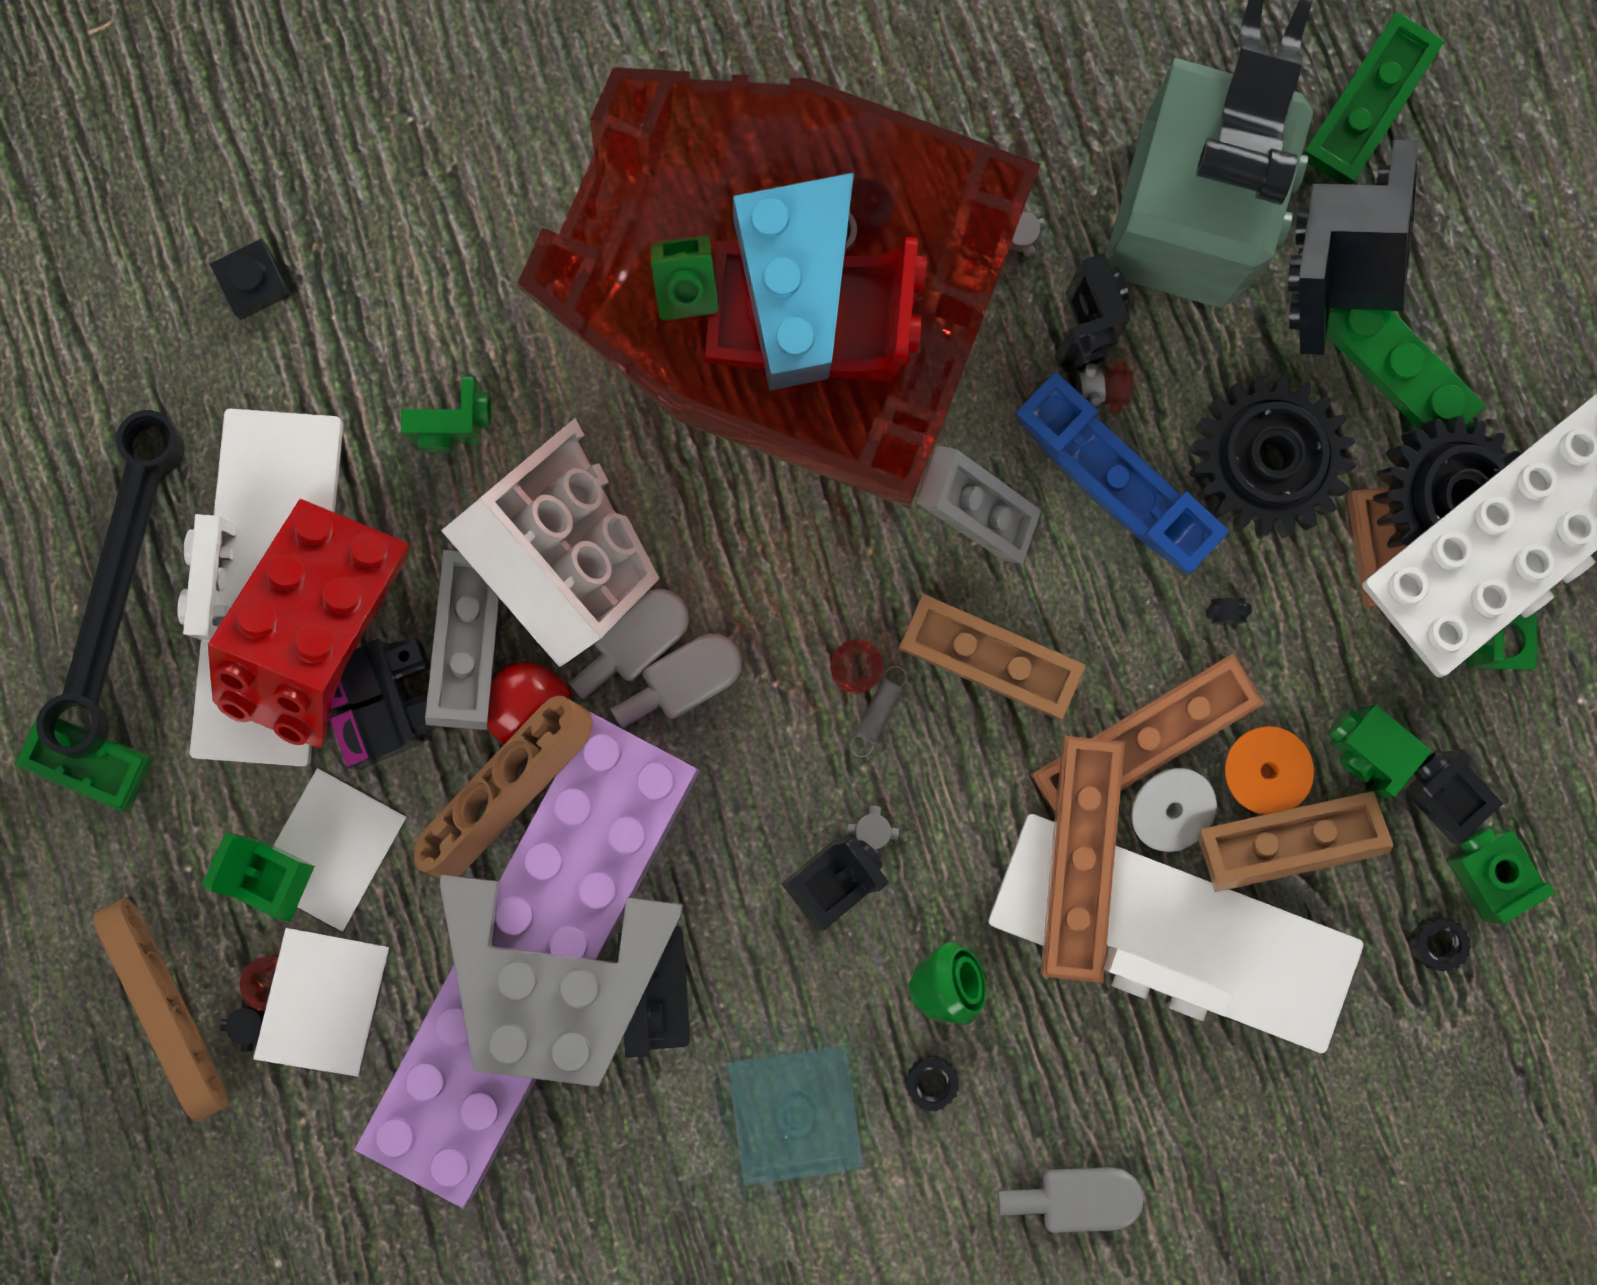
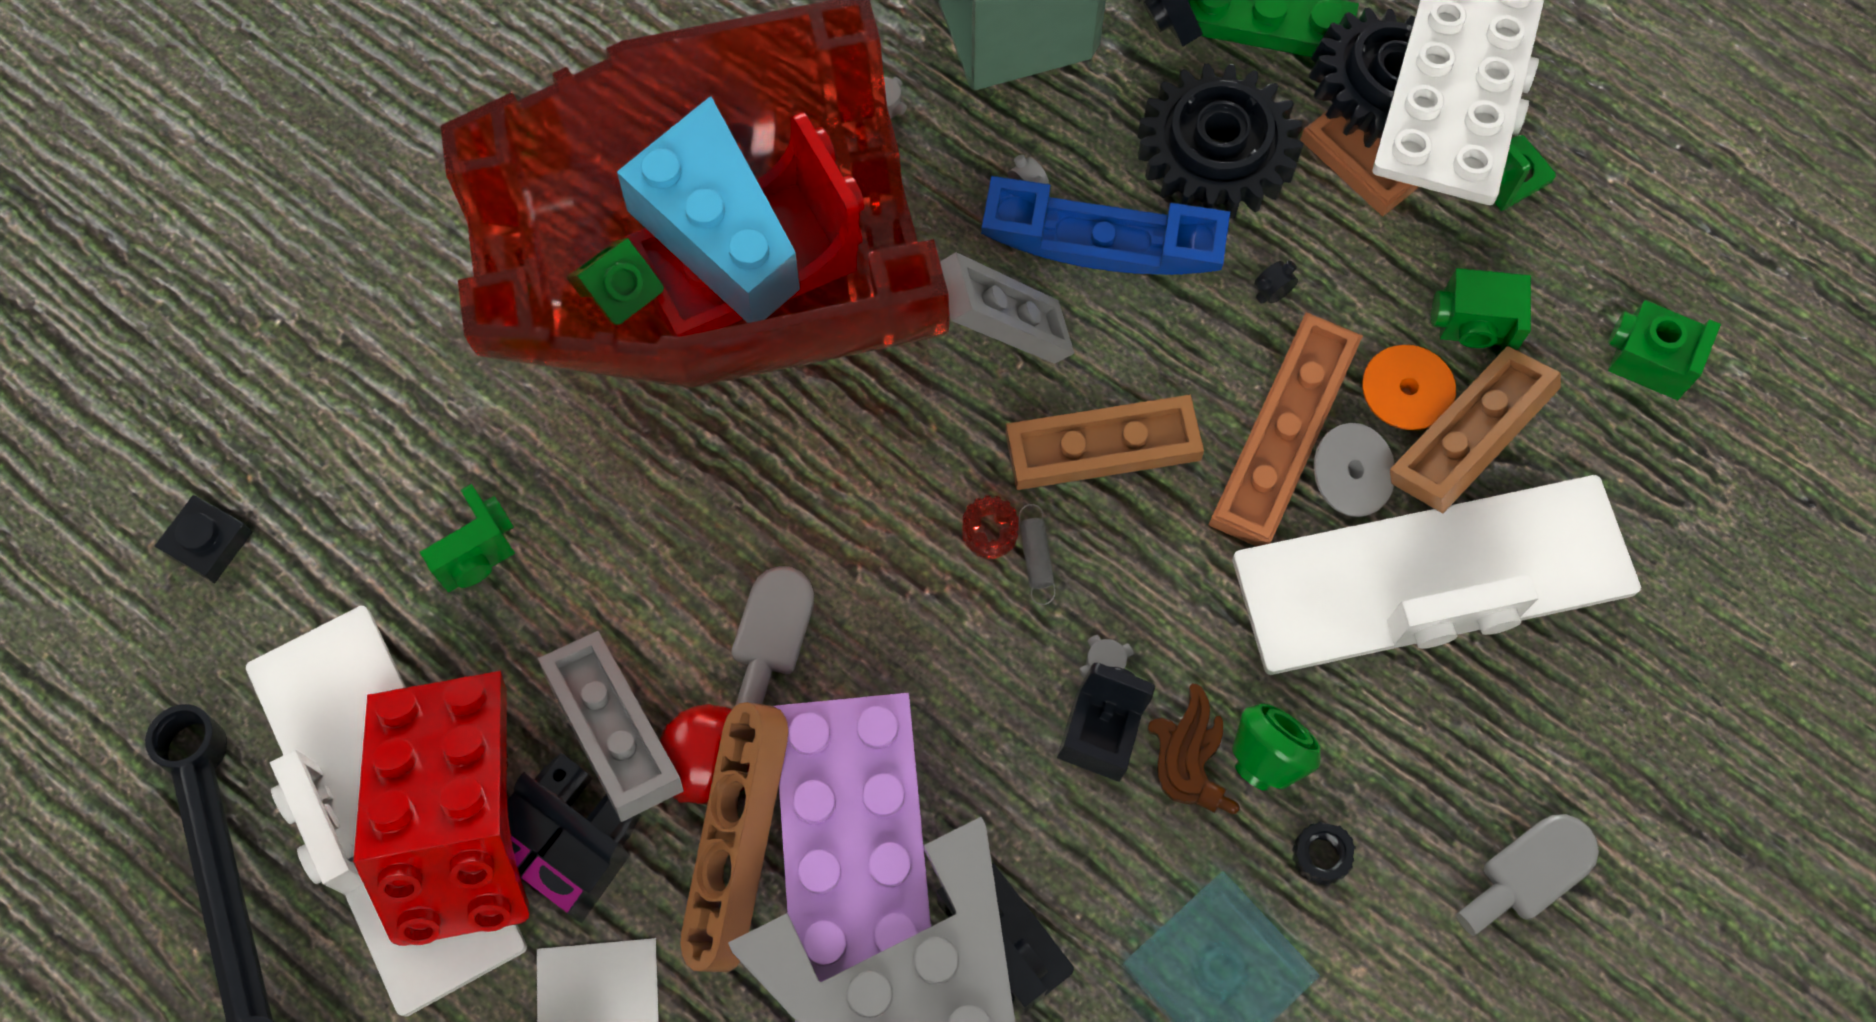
camera: 30 degrees left, 15 degrees down
(556, 547) = (642, 591): white wedge -> none
(684, 679) = (842, 634): light grey piece -> none
(885, 939) = (1186, 751): none -> reddish brown piece
(1082, 859) = (1310, 560): nougat tile -> none
(1098, 304) = (991, 108): black bracket -> none
(1118, 387) = (1054, 164): clear red piece -> none
(1452, 794) = (1572, 308): black bracket -> none
(1459, 944) = (1670, 422): black axle -> none

